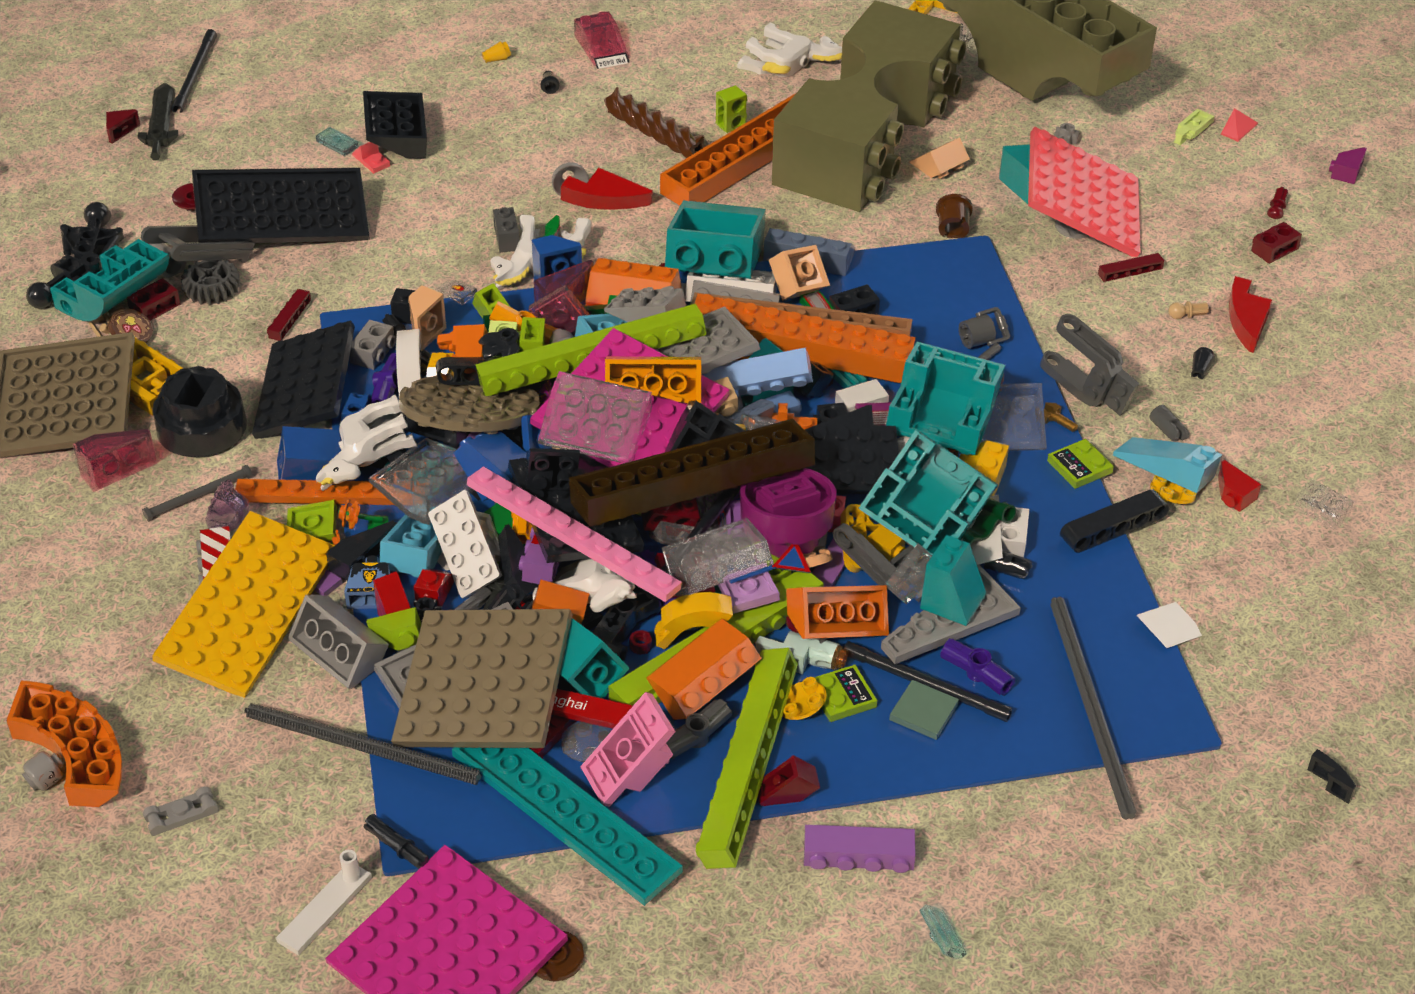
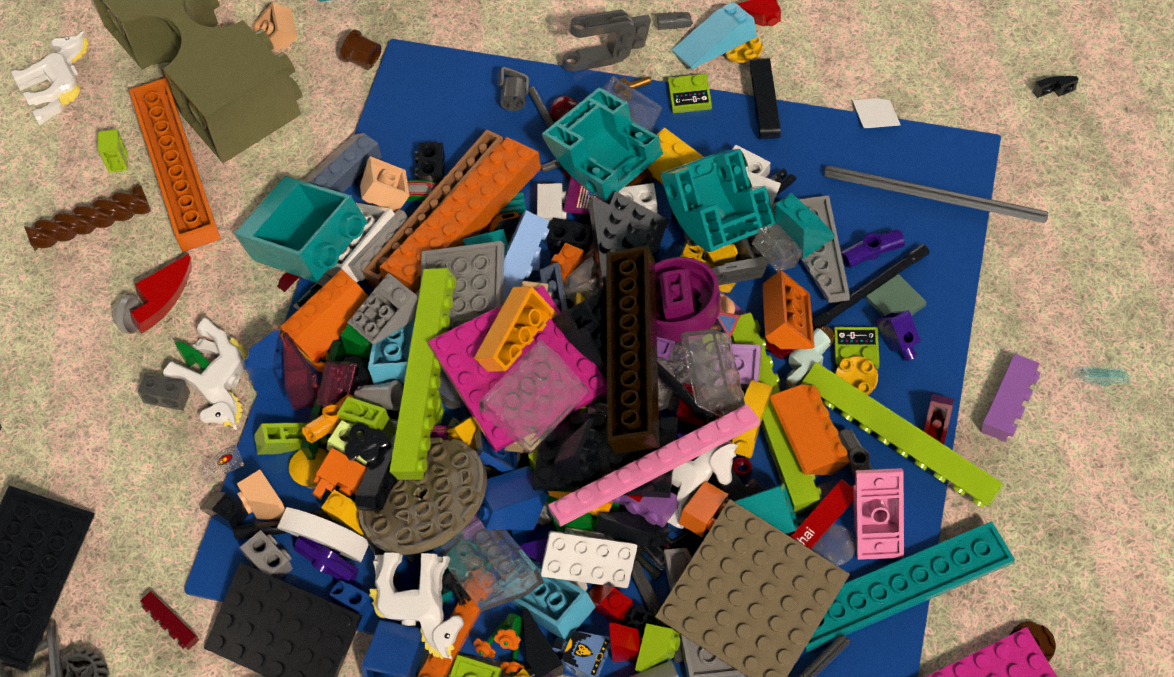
camera: 60 degrees left, 15 degrees up
(873, 713) = (899, 332): none -> dark purple torso

